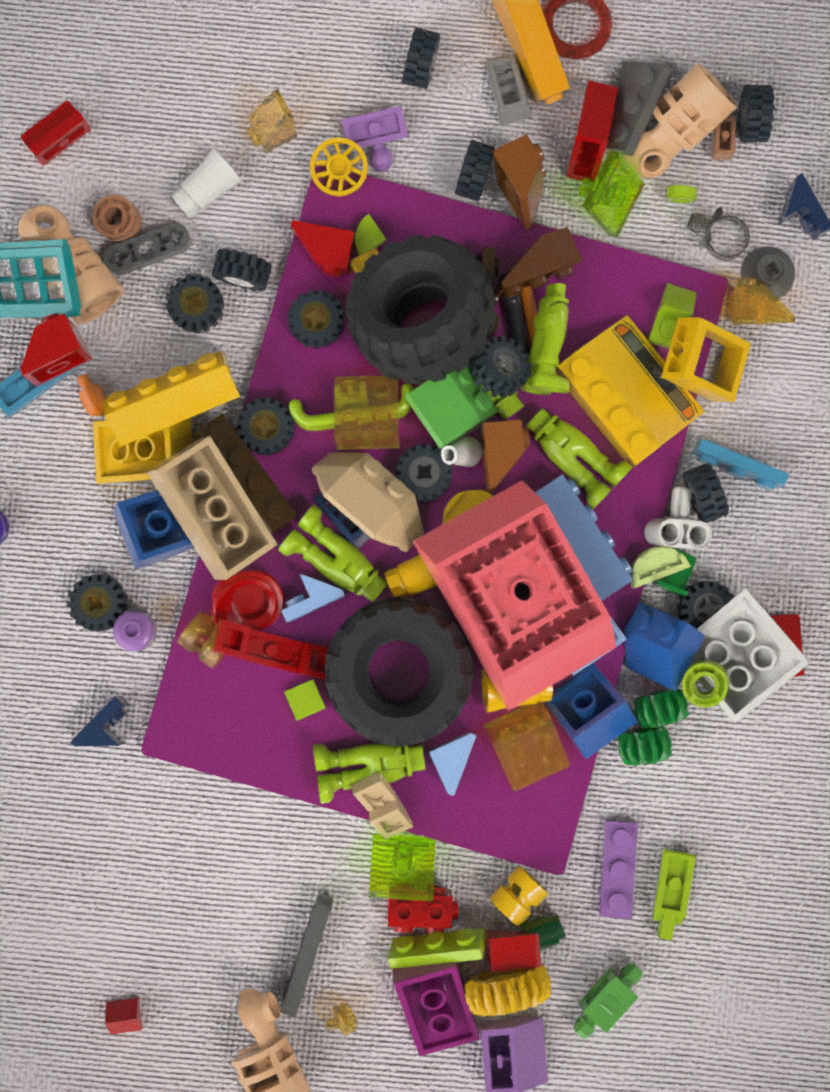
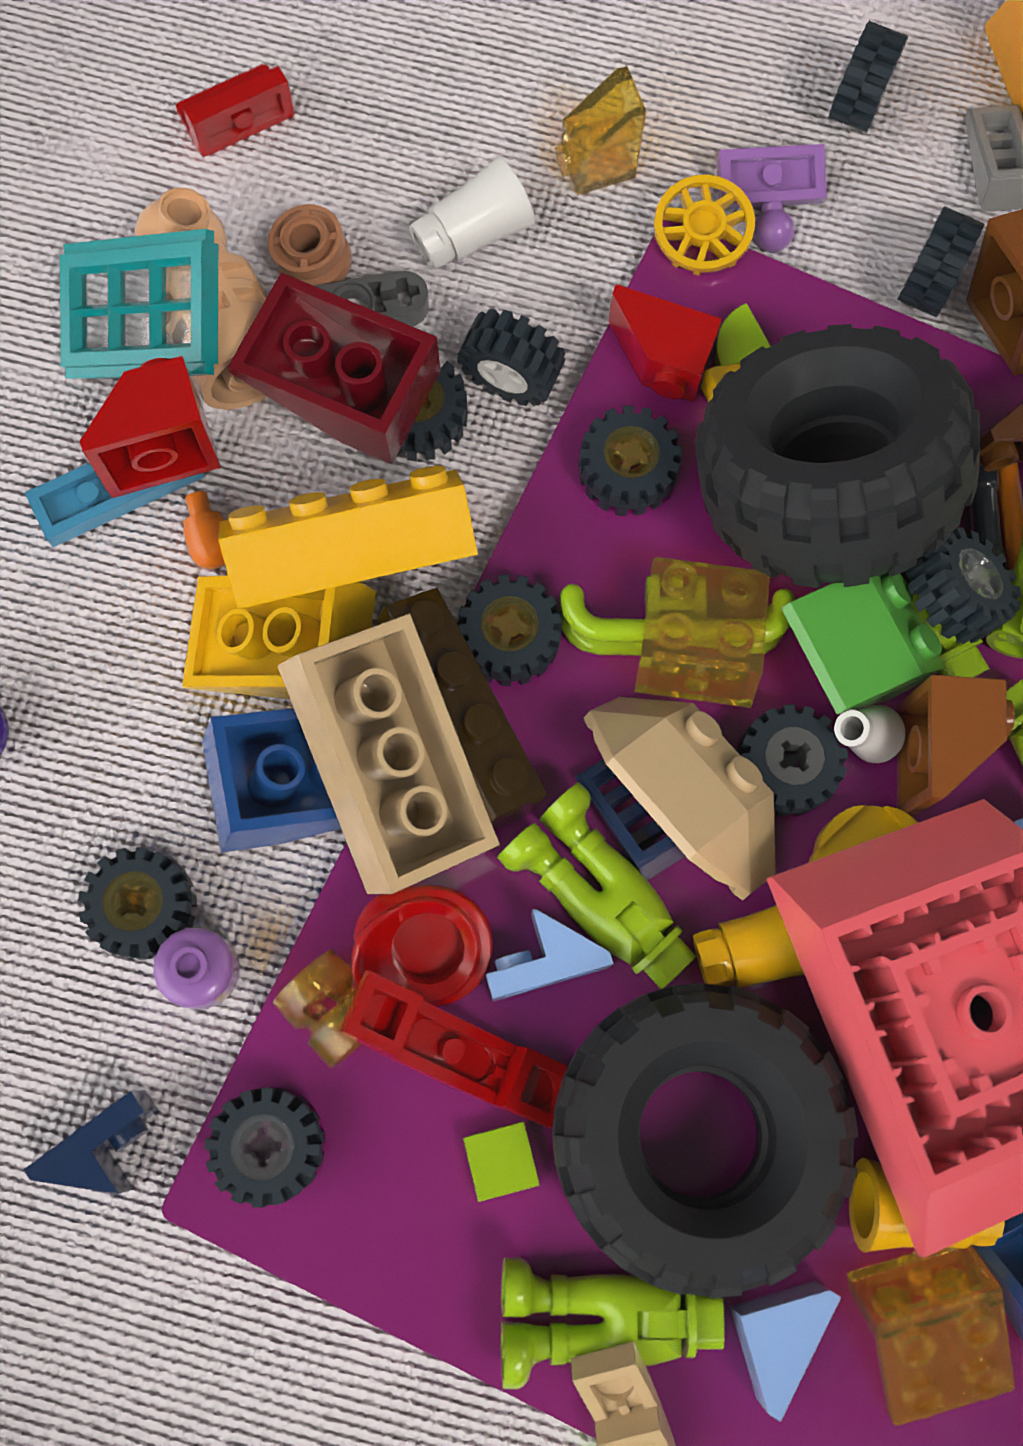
camera: 10 degrees right, 10 degrees down
(147, 297) = (339, 366): none -> dark red slope
(198, 709) = (289, 1146): none -> black wheel

